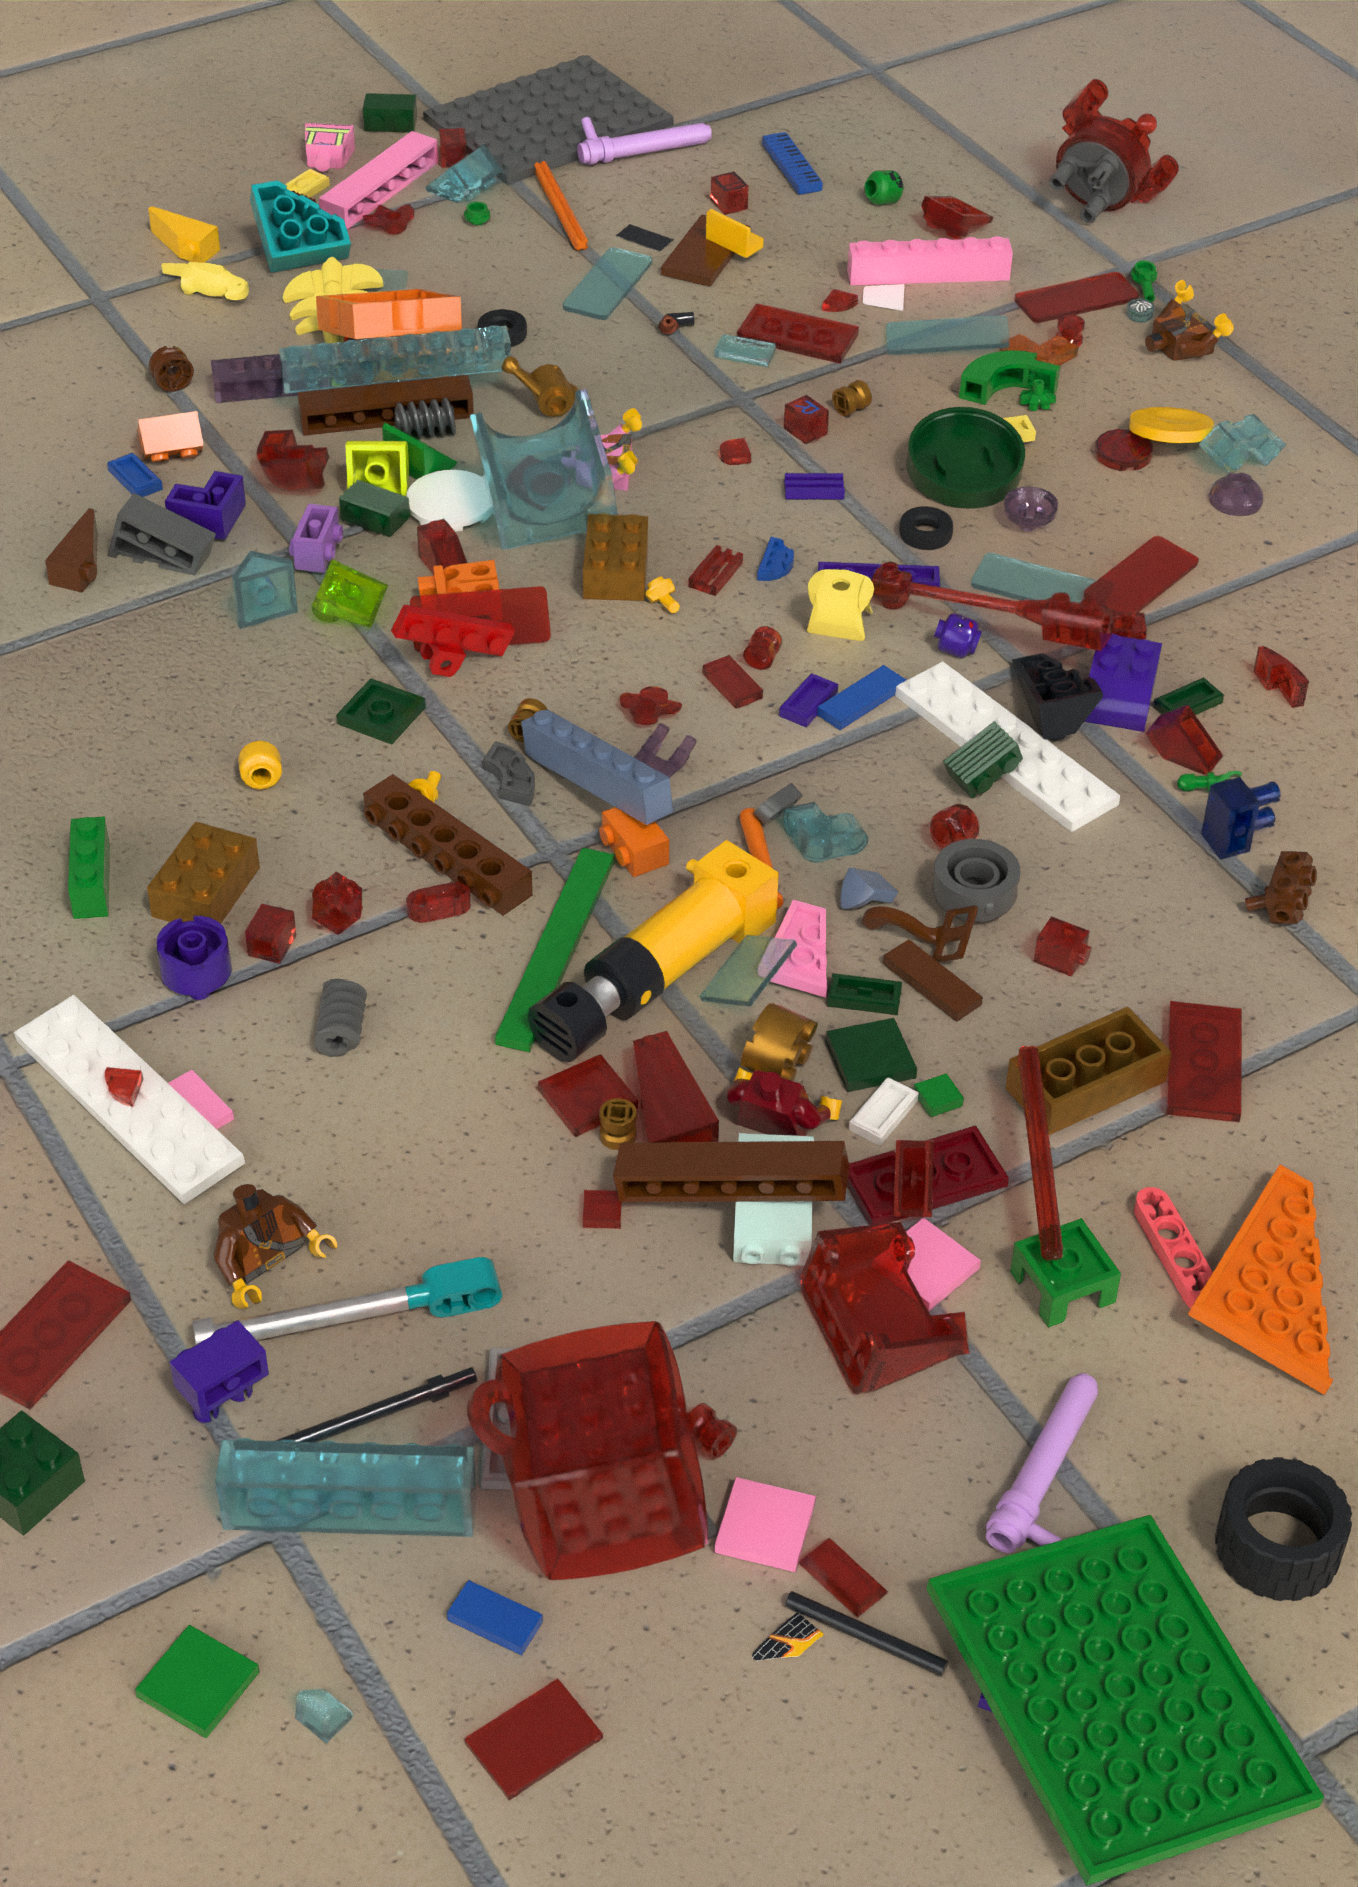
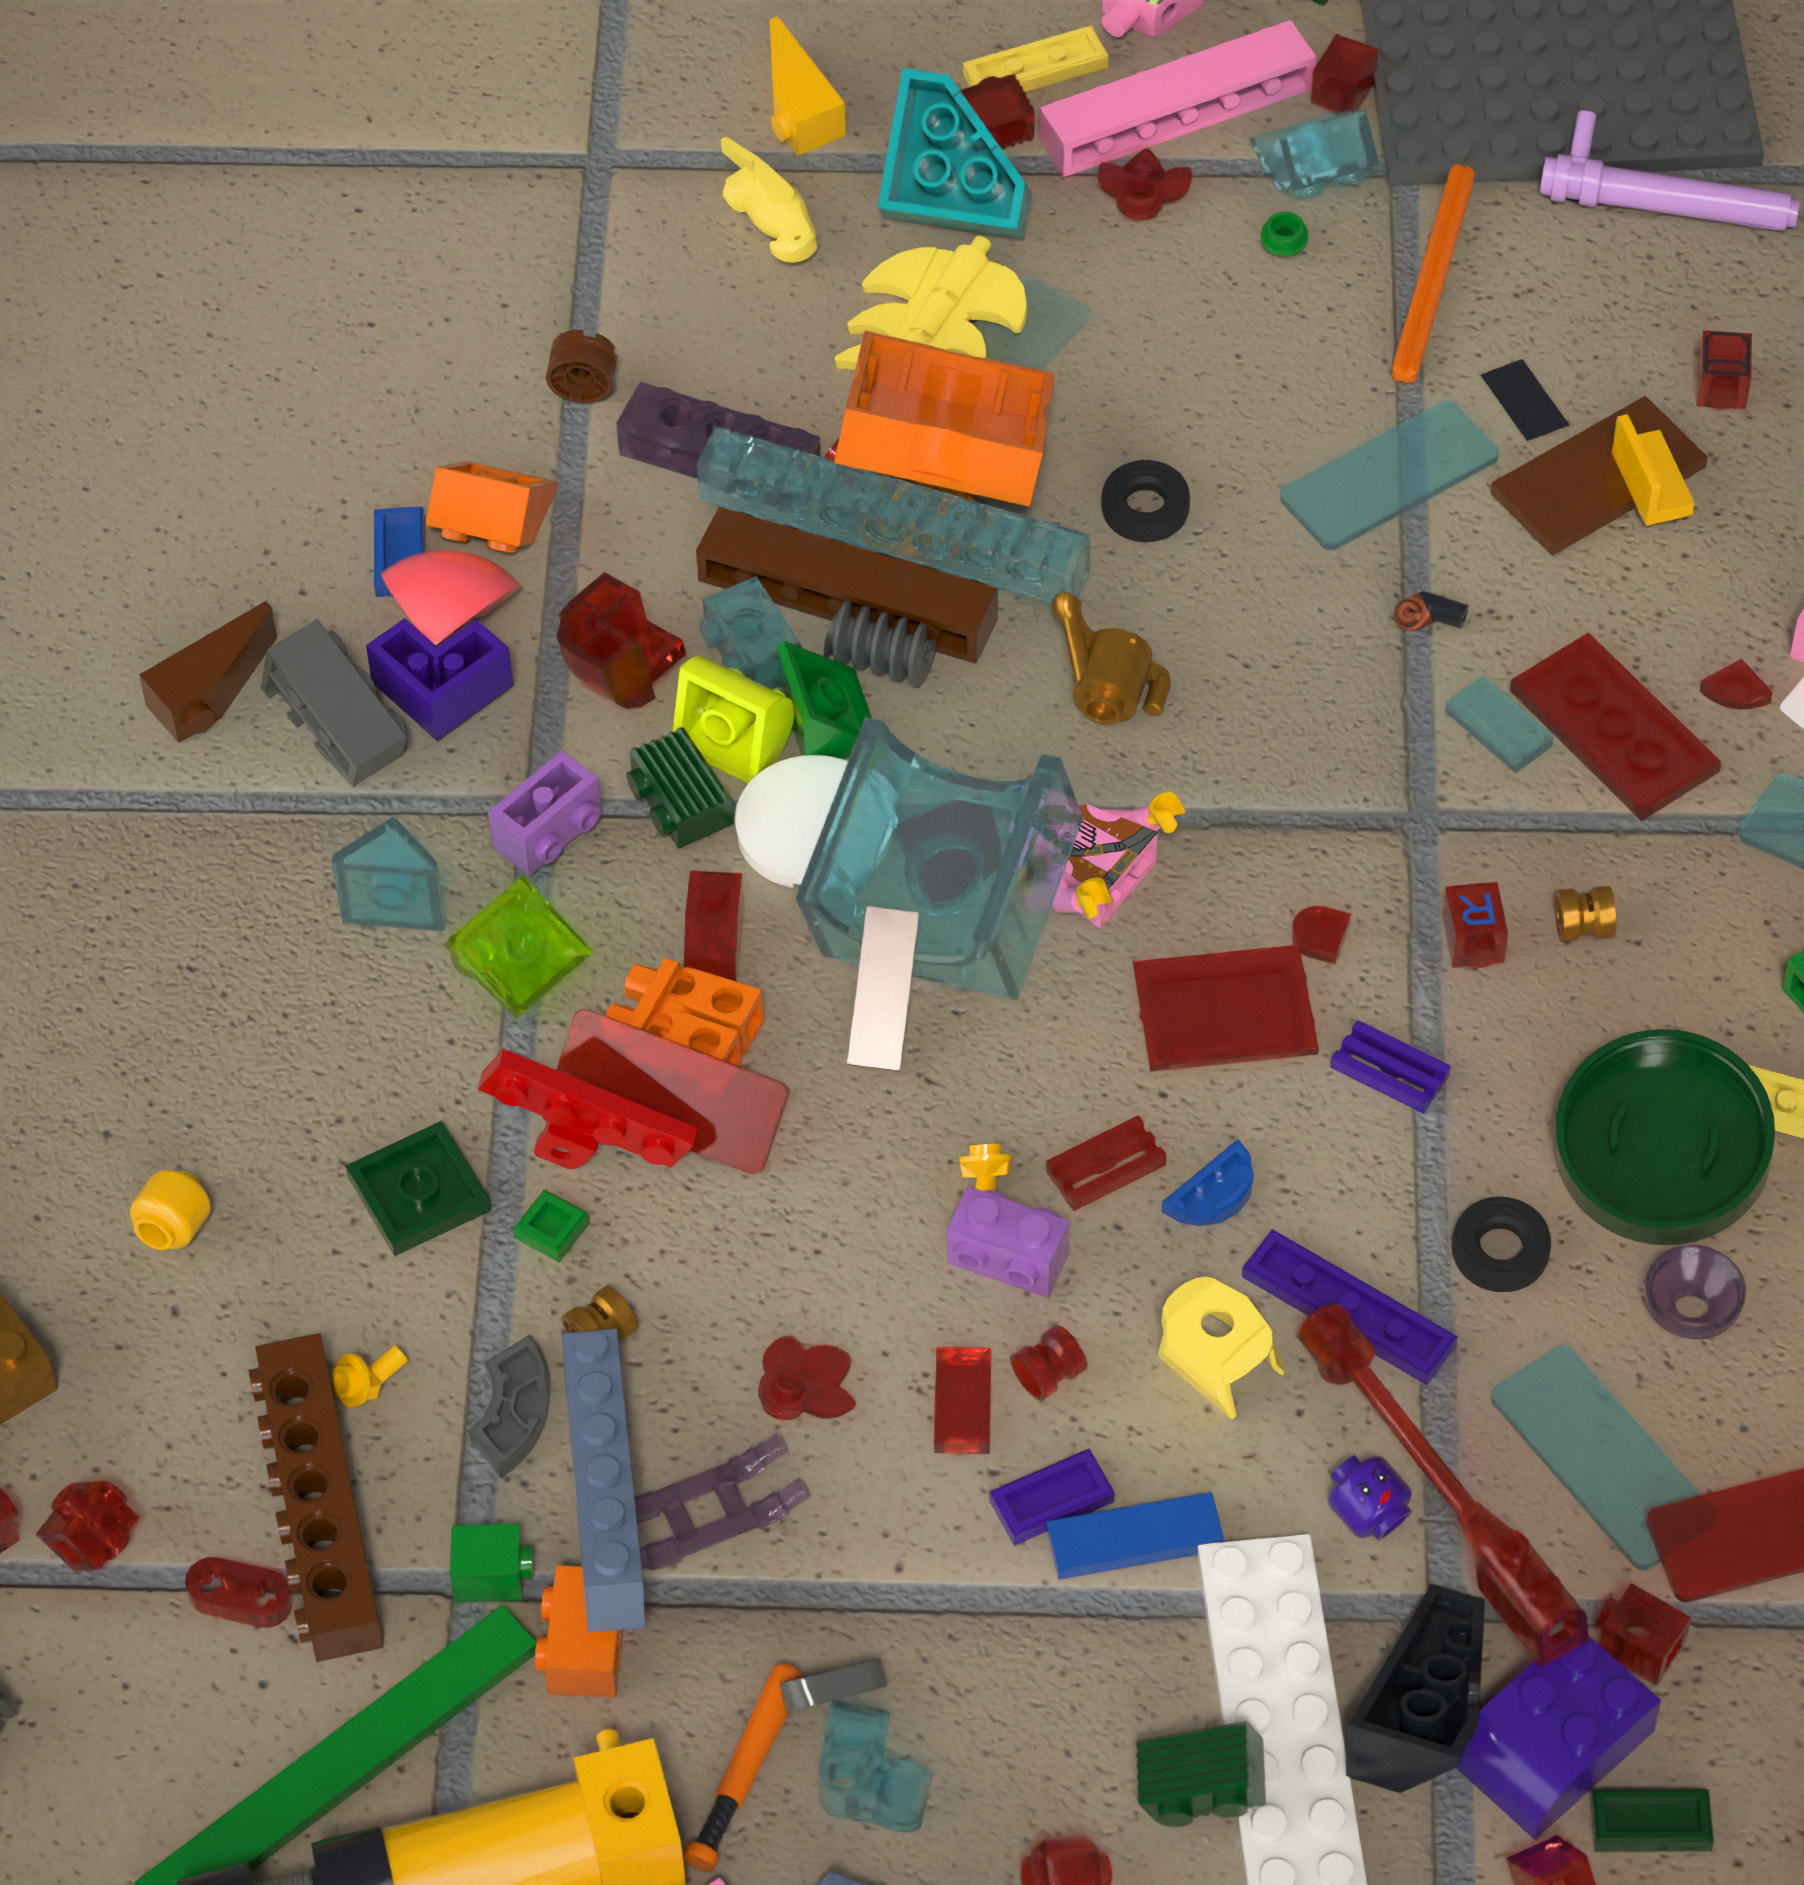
camera: 35 degrees right, 10 degrees up
(178, 468) = (447, 590): none -> coral brick
(348, 428) = (746, 630): none -> clear light blue brick
(464, 698) = (551, 1225): none -> green tile
(553, 537) = (883, 988): none -> tile
(560, 833) = (489, 1562): none -> green brick
(615, 557) = (959, 1067): pearl gold brick -> none
(701, 610) = (1008, 1241): none -> medium lavender brick
(717, 493) = (1225, 1008): none -> clear red piece

